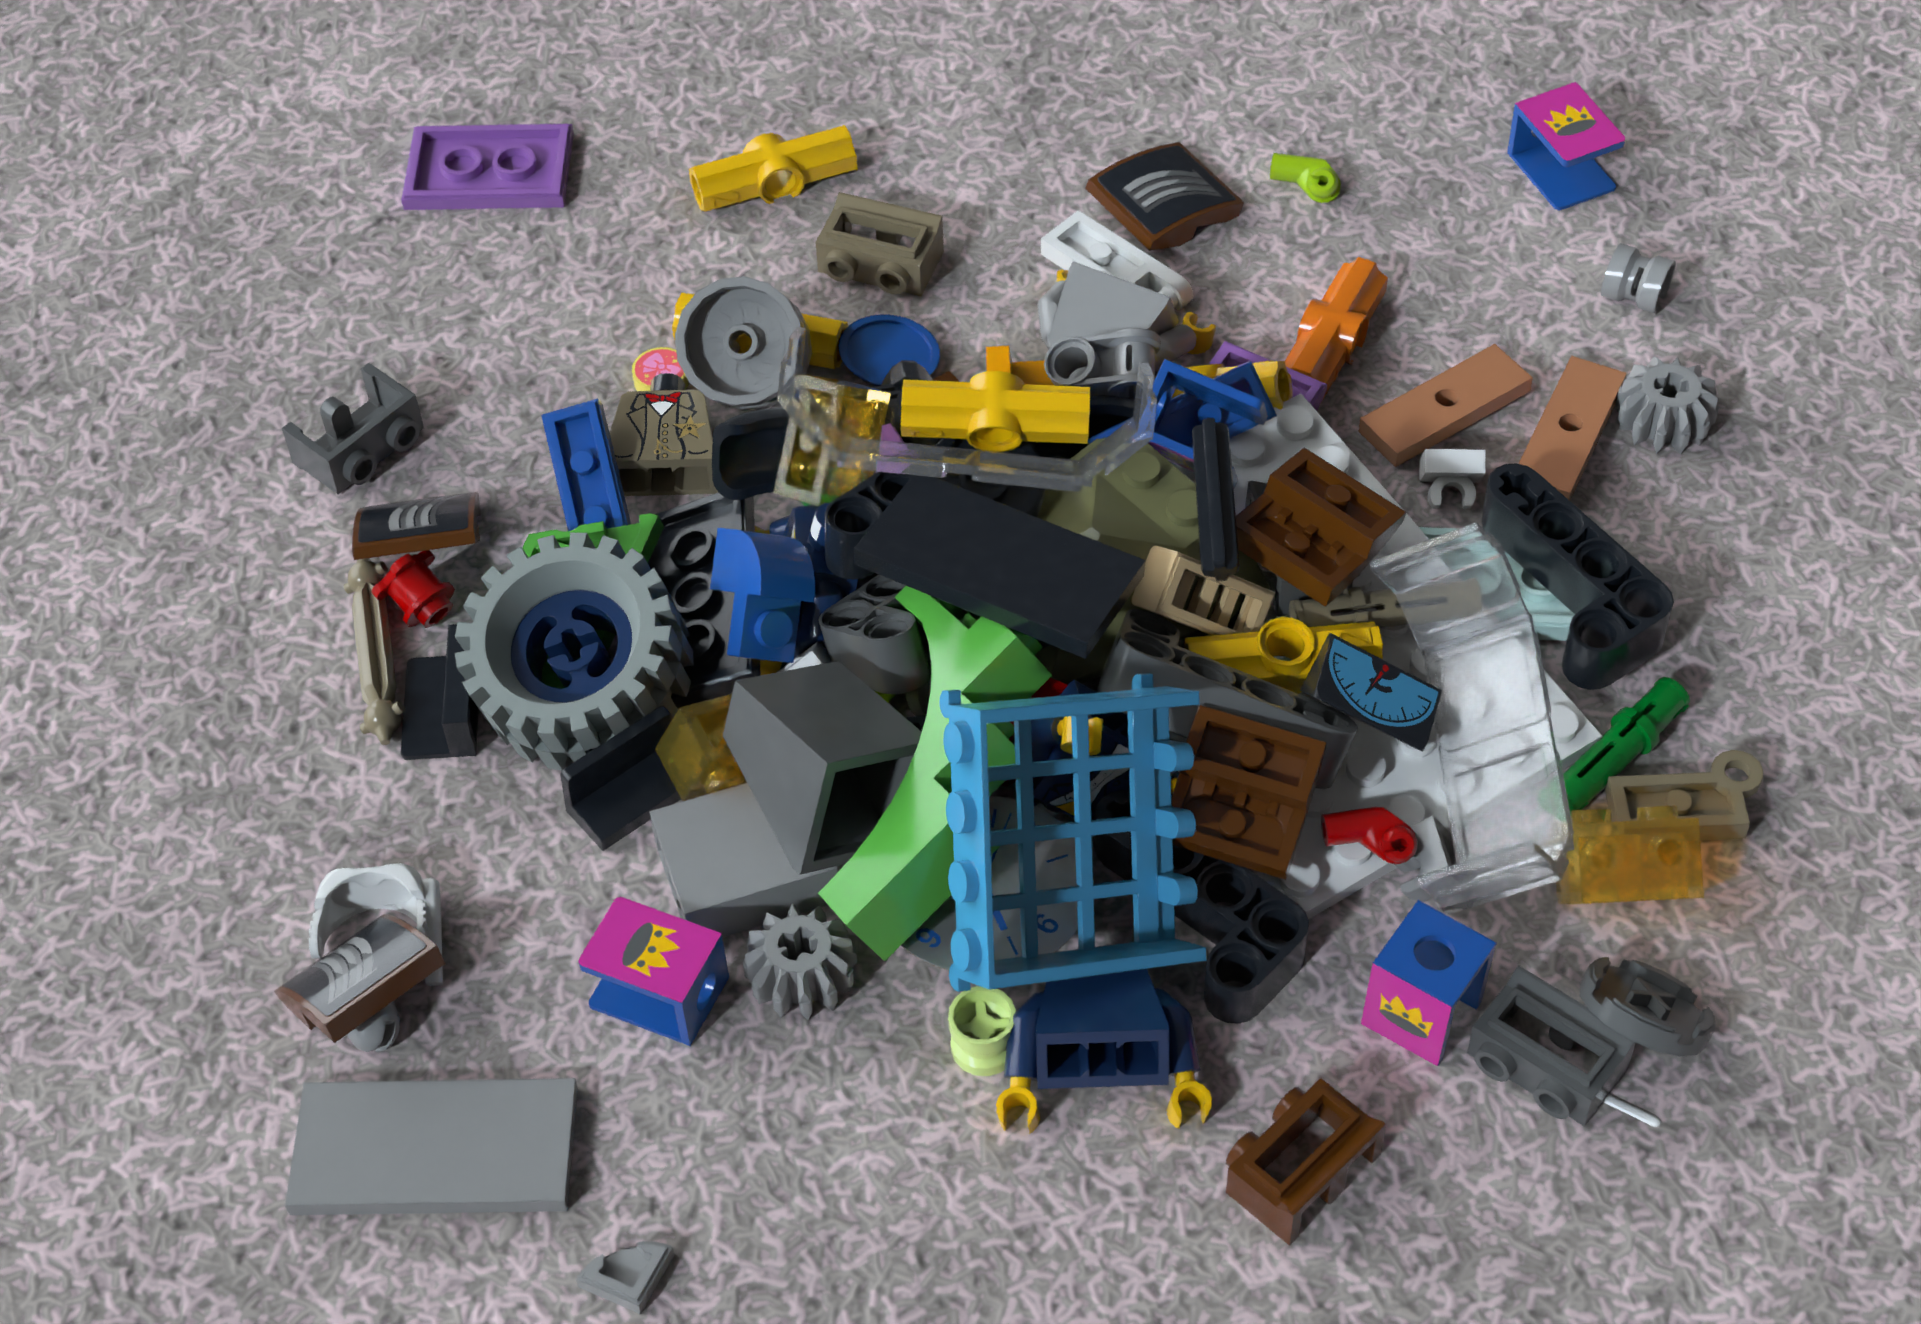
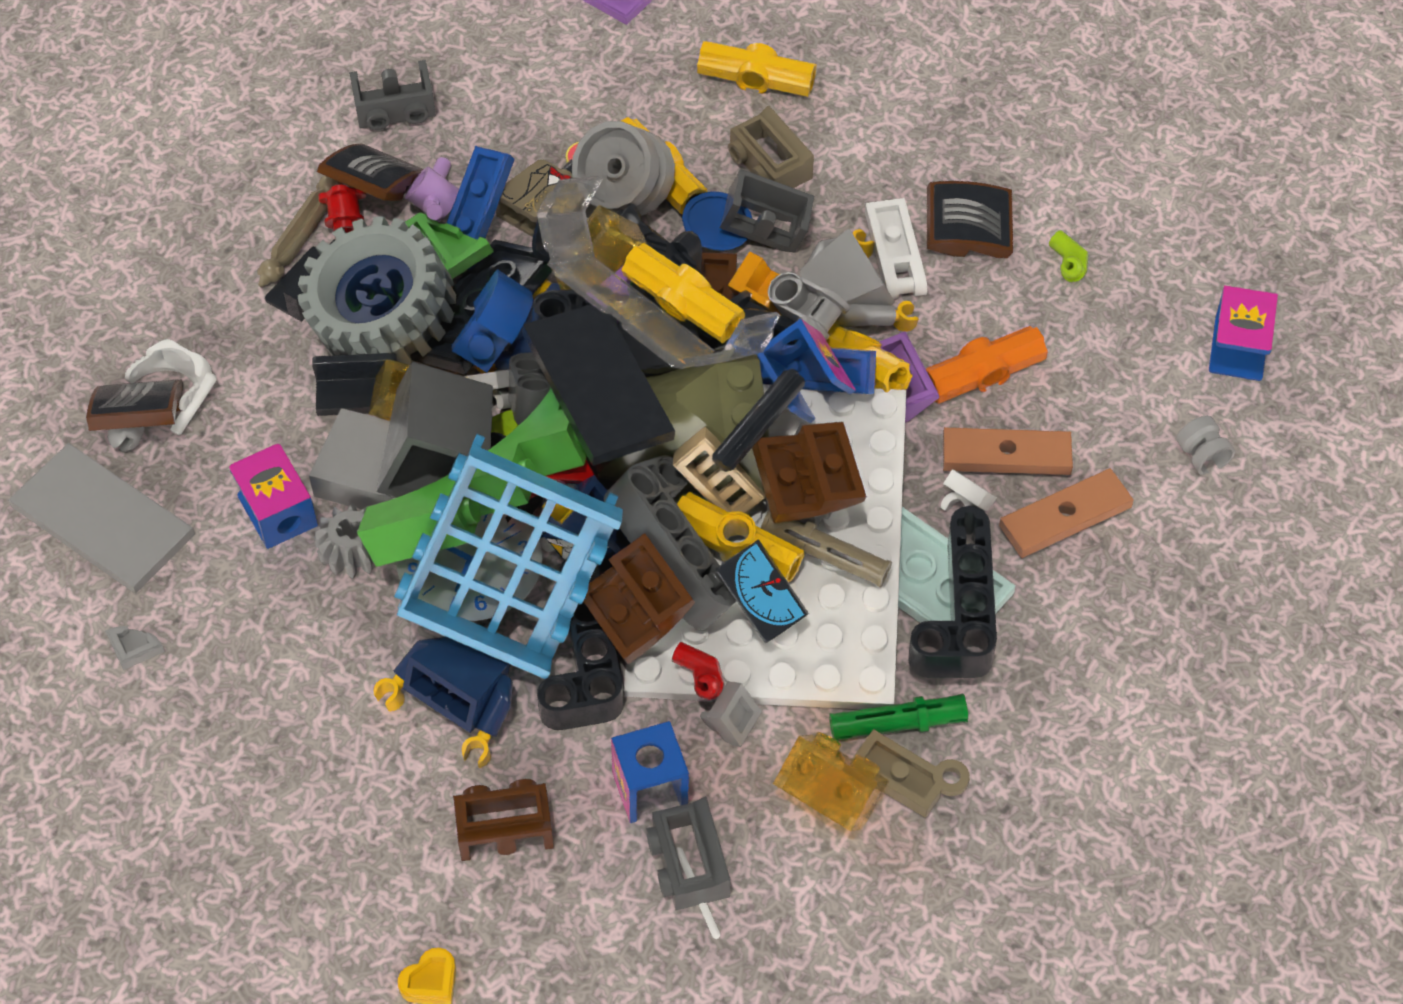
camera: 35 degrees right, 5 degrees up
(518, 506) = (432, 191): none -> lavender piece
(963, 292) = (773, 202): none -> dark grey window
(981, 1029) = (401, 636): yellowish green wheel -> none
(1491, 718) = (816, 654): clear windscreen -> none
(1647, 1006) = (760, 868): dark grey tile -> none
(1667, 404) = (1140, 534): light grey gear -> none

